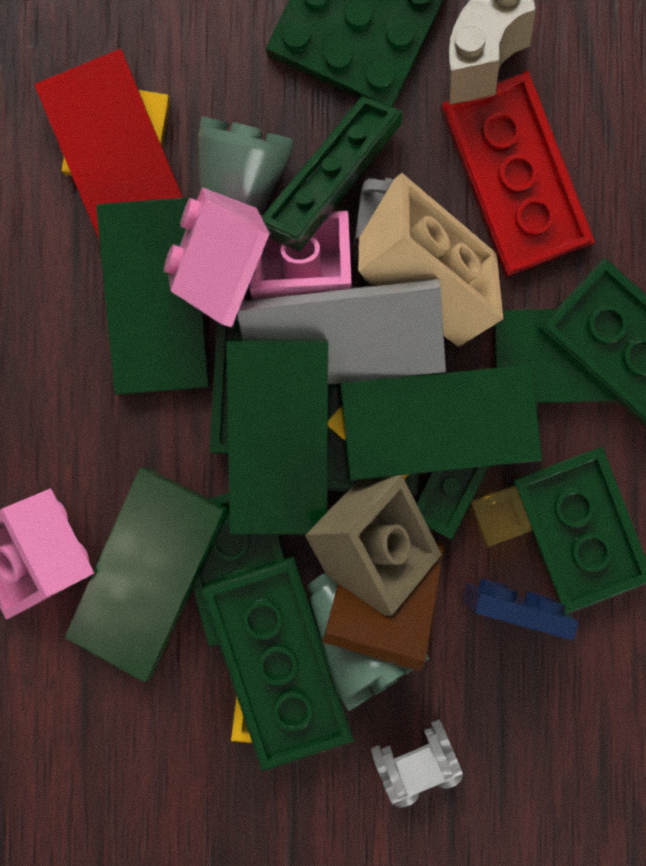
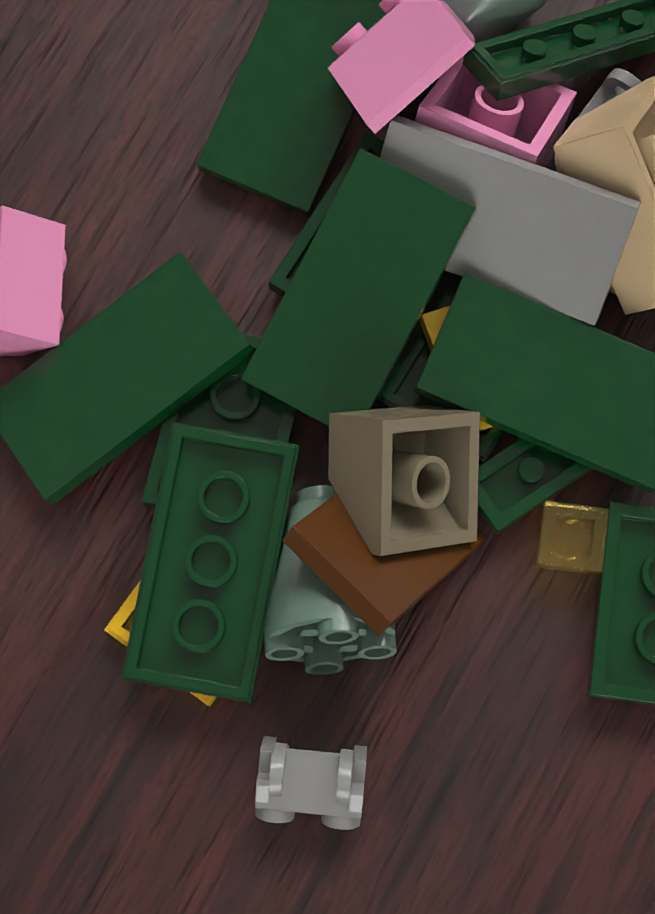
camera: 30 degrees right, 10 degrees down
(533, 612) = (555, 665): dark blue plate -> none

